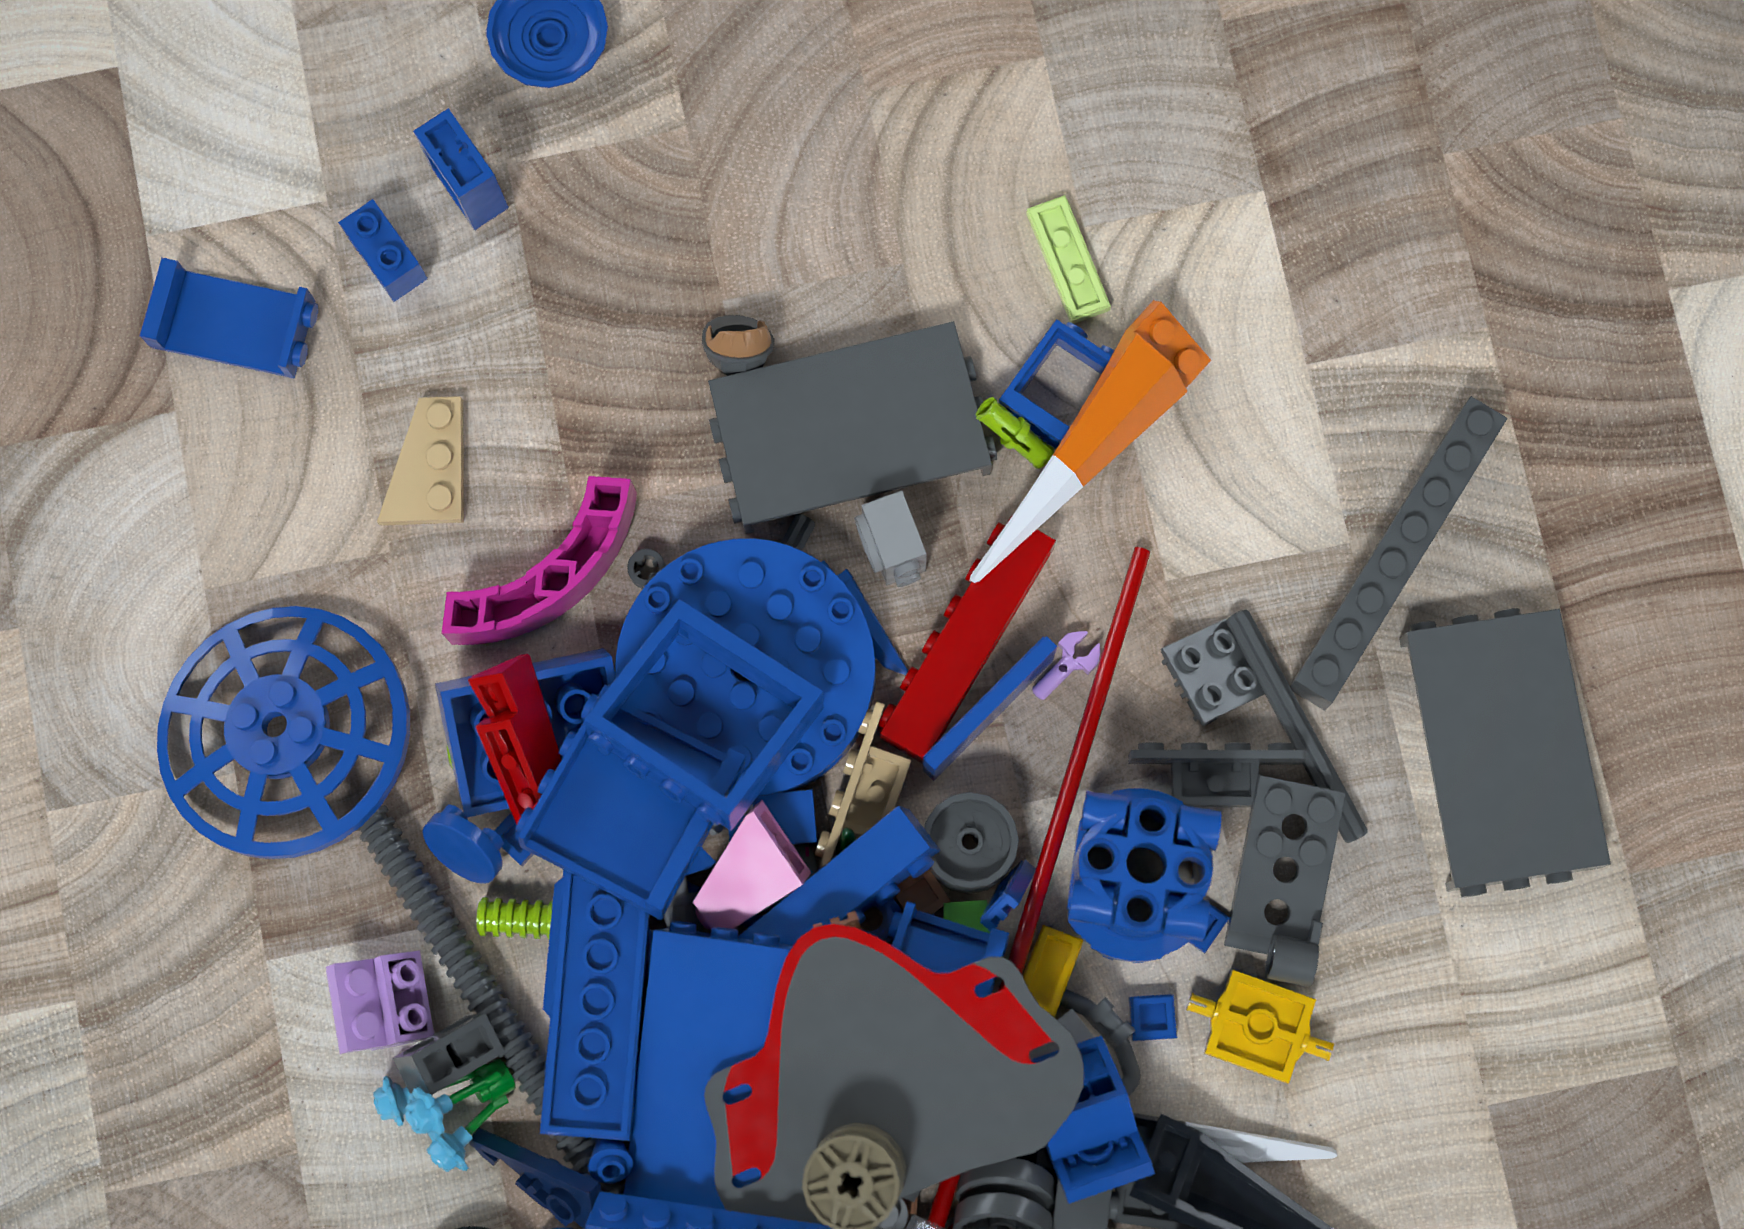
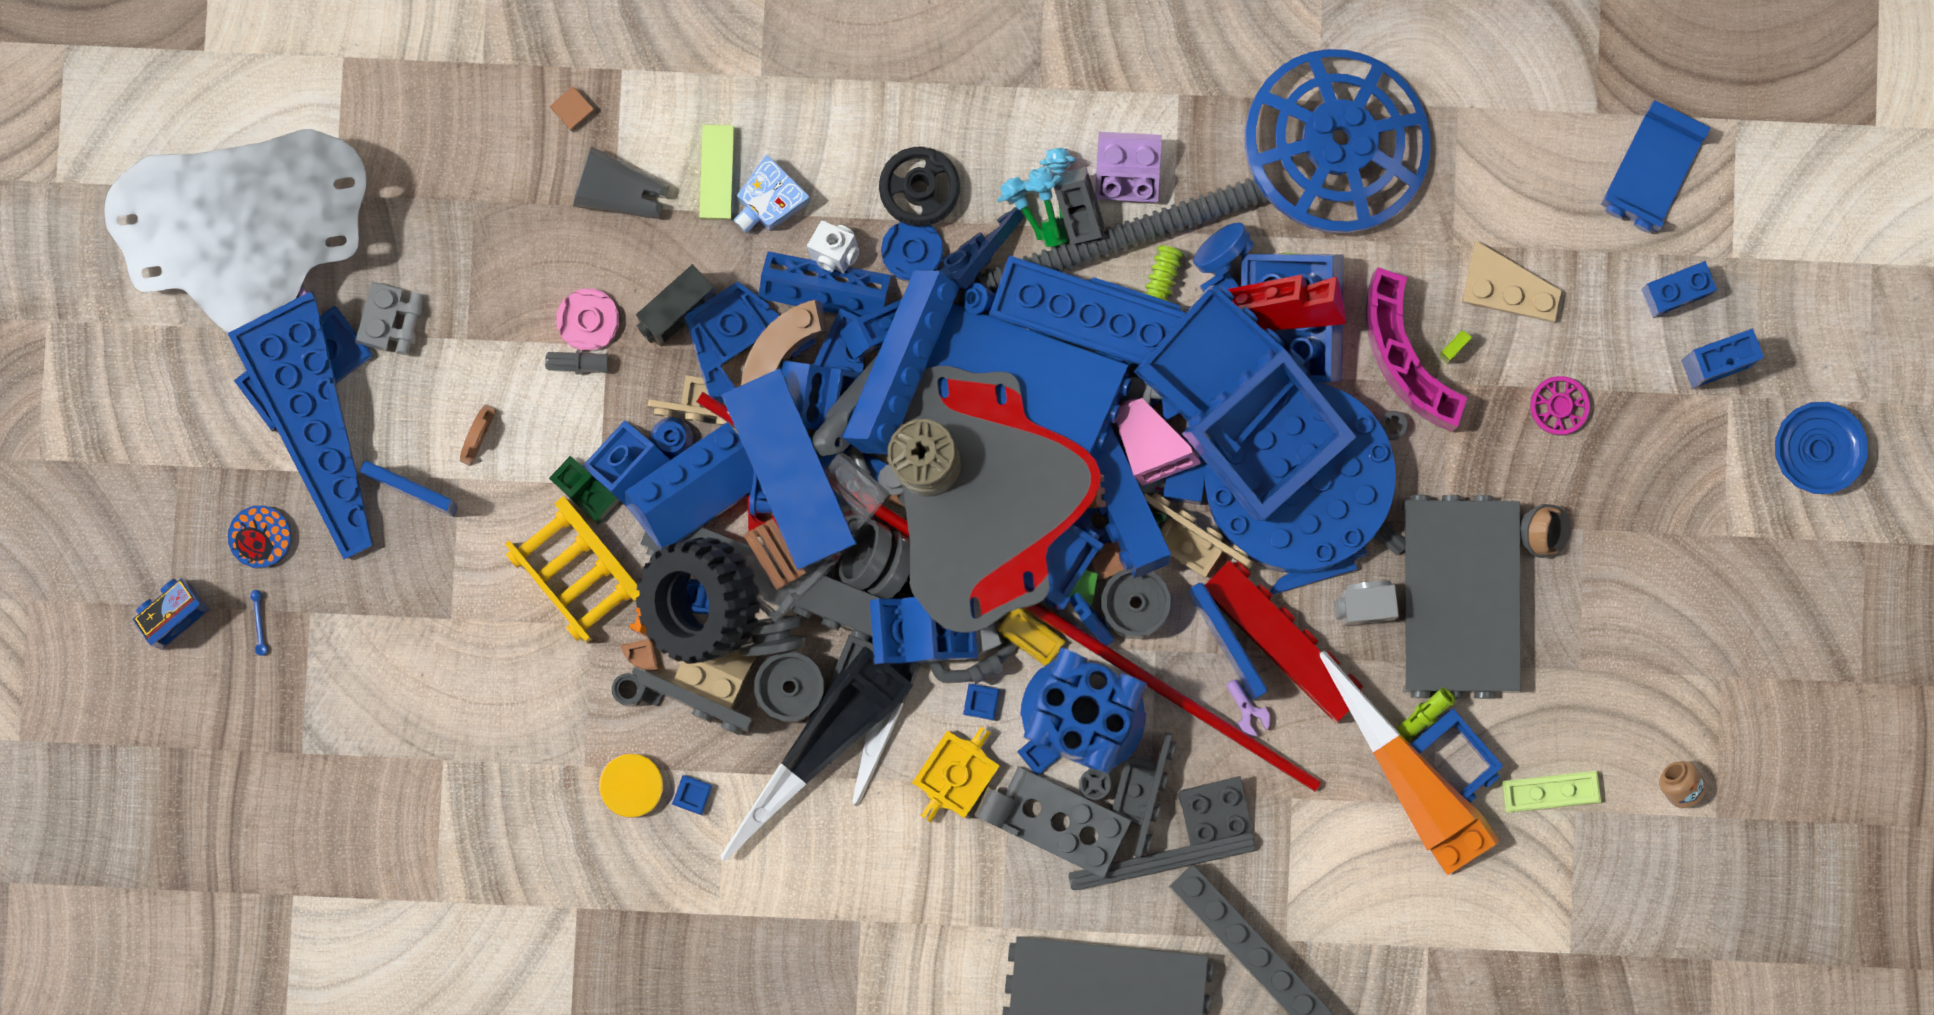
camera: 100 degrees right, 5 degrees up
(524, 513) = (1455, 346): none -> lime tile
(569, 365) = (1559, 405): none -> dark pink wheel
(1017, 99) = (1682, 784): none -> medium nougat head
(1232, 834) = (1094, 780): none -> dark grey wheel

